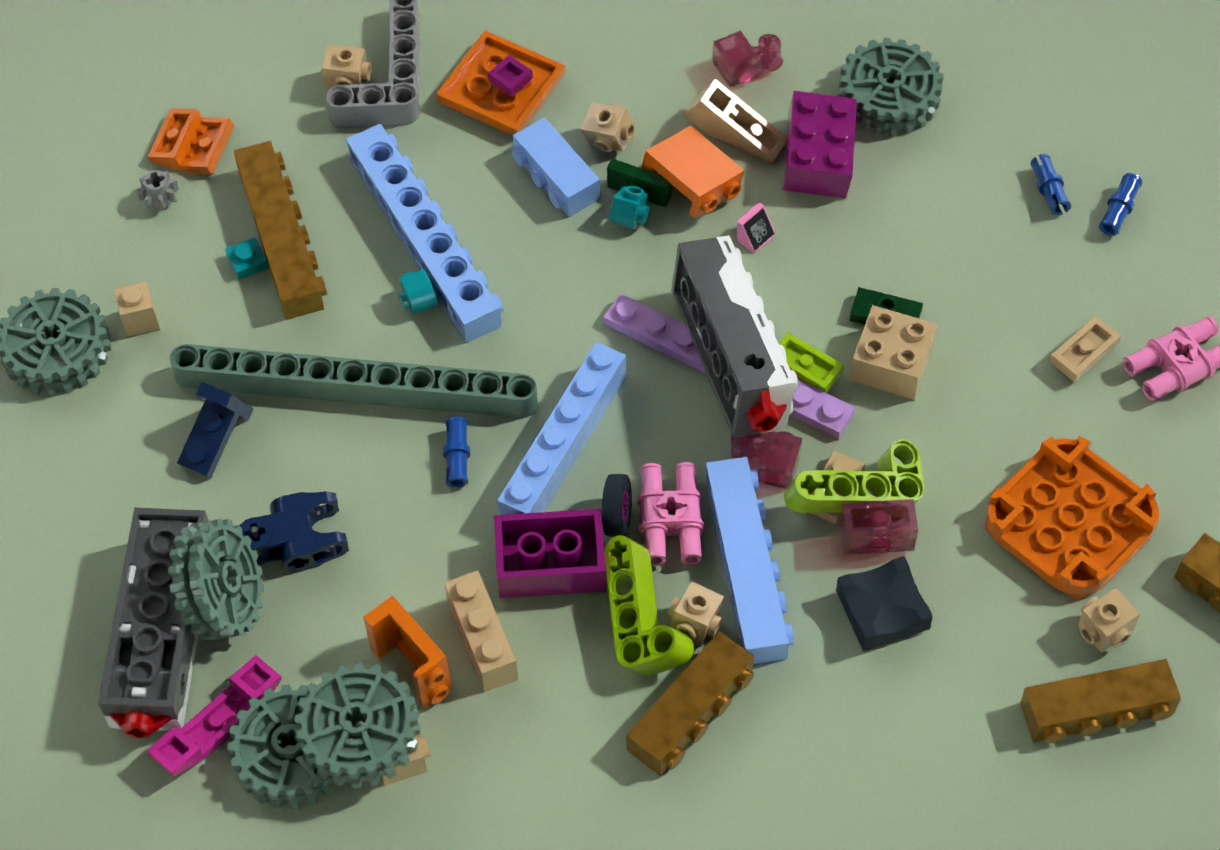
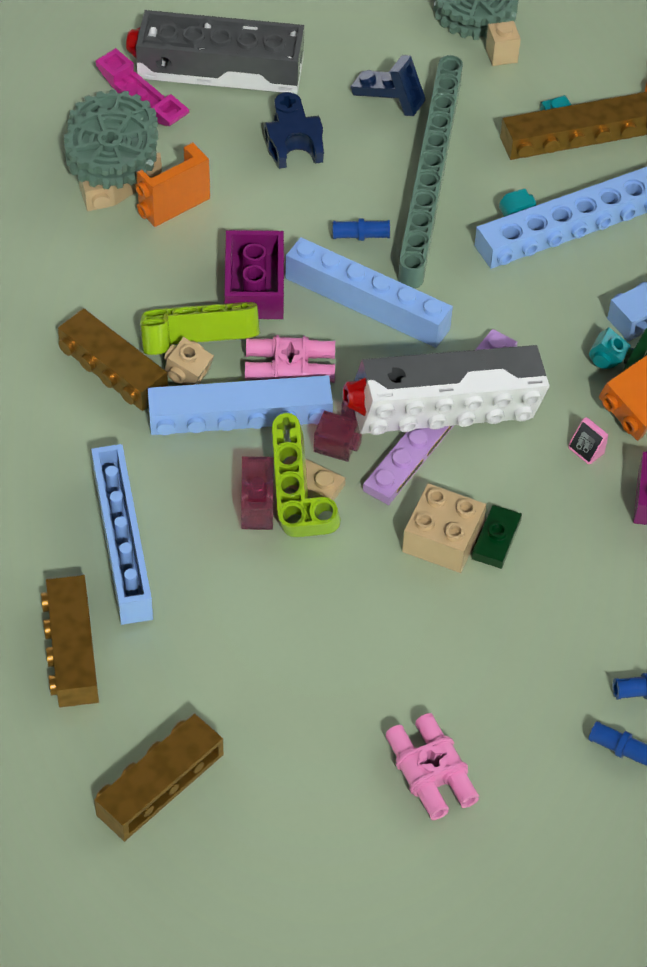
camera: 90 degrees right, 5 degrees down
(157, 189) = (622, 55): light grey gear -> none
(216, 579) = (236, 50): sand green piece -> none
(481, 631) = (190, 234): tan brick -> none
(616, 505) = (282, 317): black bush -> none
(810, 363) = (438, 465): lime plate -> none
(883, 604) = (185, 494): black brick -> none
(954, 659) = (122, 535): none -> light blue brick
(1072, 517) = (260, 648): orange plate -> none
(1085, 348) = (446, 686): tan plate -> none
(1108, 620) = (146, 653): tan brick -> none

